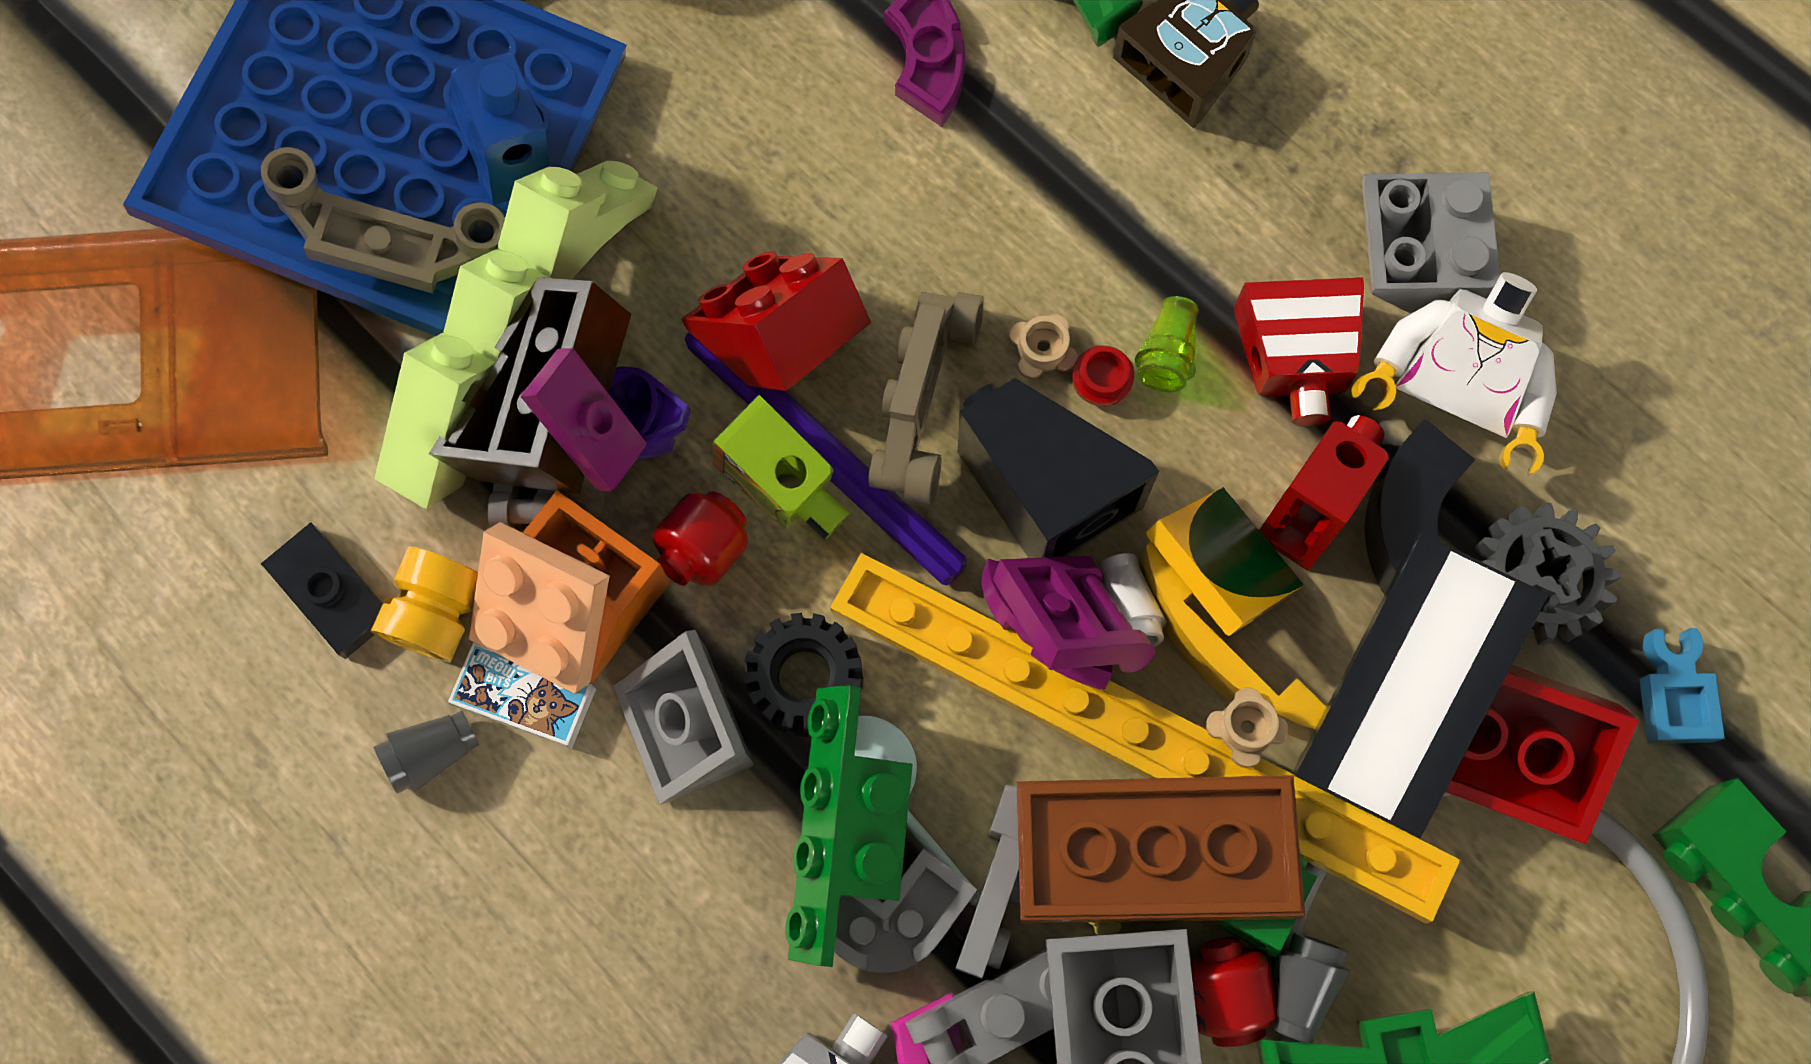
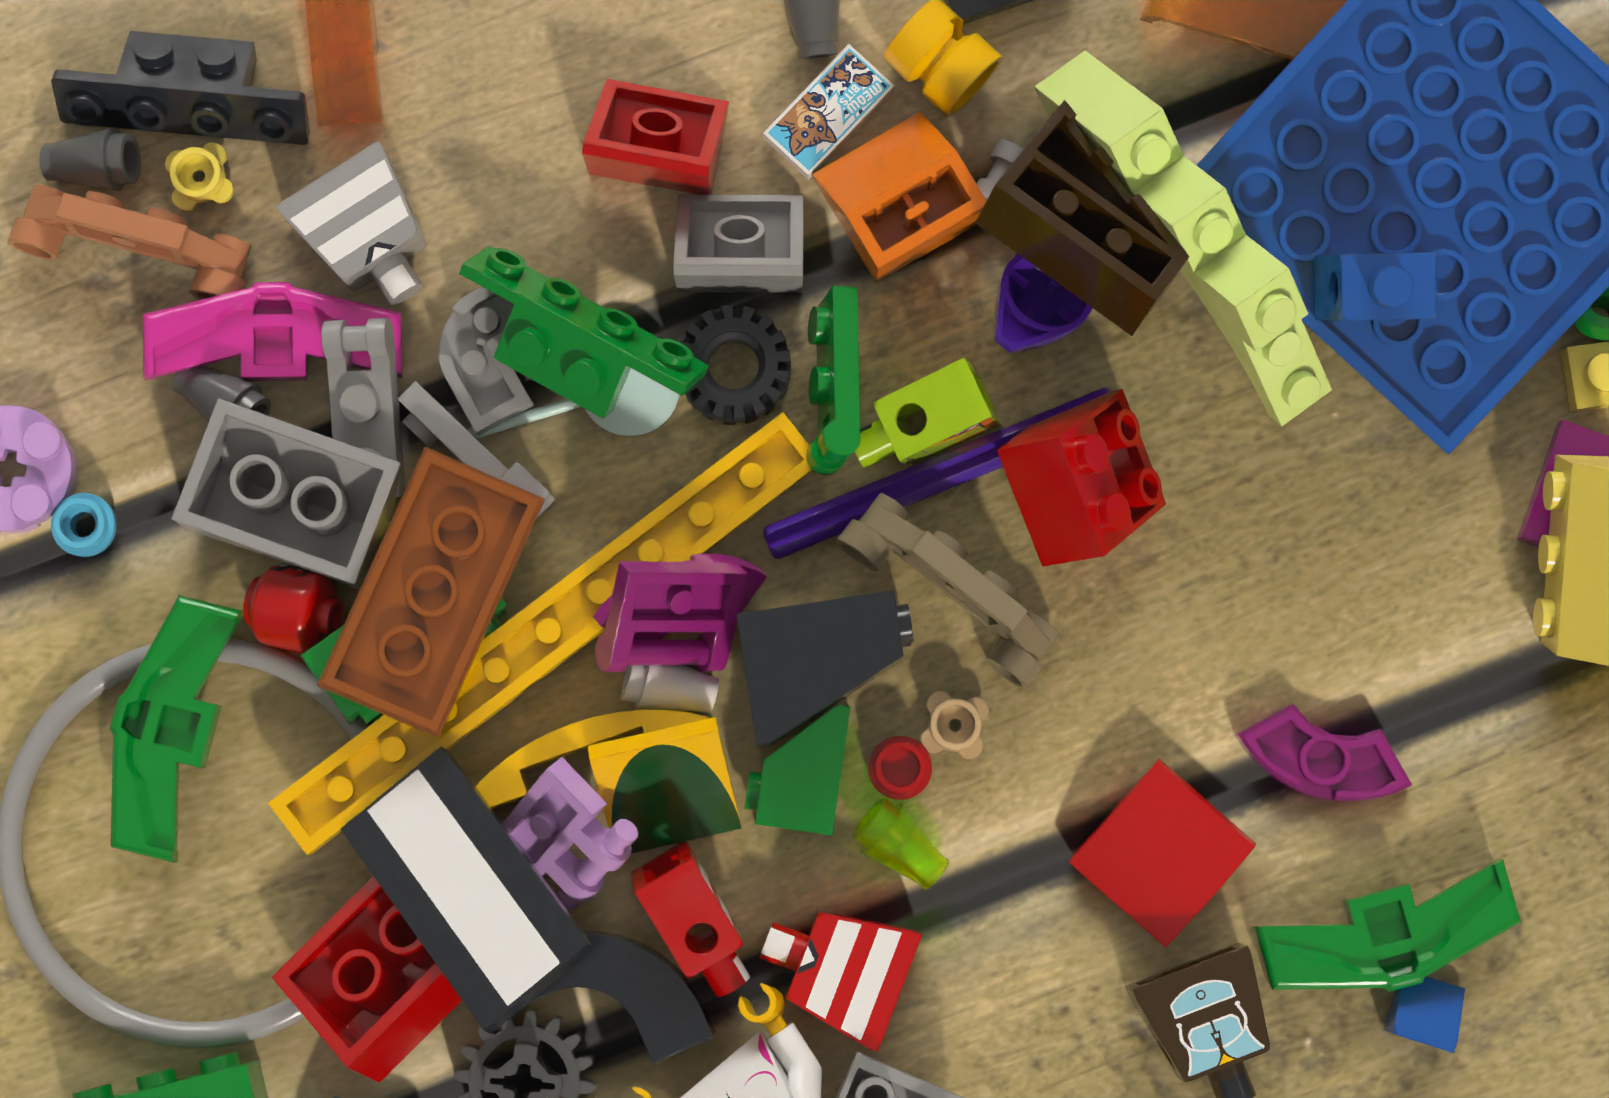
camera: 110 degrees right, 10 degrees up
(375, 238) = (1308, 126): dark tan plate -> none
(538, 607) = (889, 148): light nougat plate -> none
(584, 419) = (1026, 244): magenta plate -> none
(610, 845) = (655, 137): none -> red slope
(700, 538) = (900, 323): red head -> none
(780, 567) = (835, 379): none -> green plate
(1070, 135) = (1162, 853): none -> red slope
(1174, 439) = (802, 778): none -> green slope
(1251, 708) = (491, 740): tan plate -> none
(1301, 640) = (564, 812): none -> lavender plate
(1307, 985) = (269, 676): dark grey cone -> none

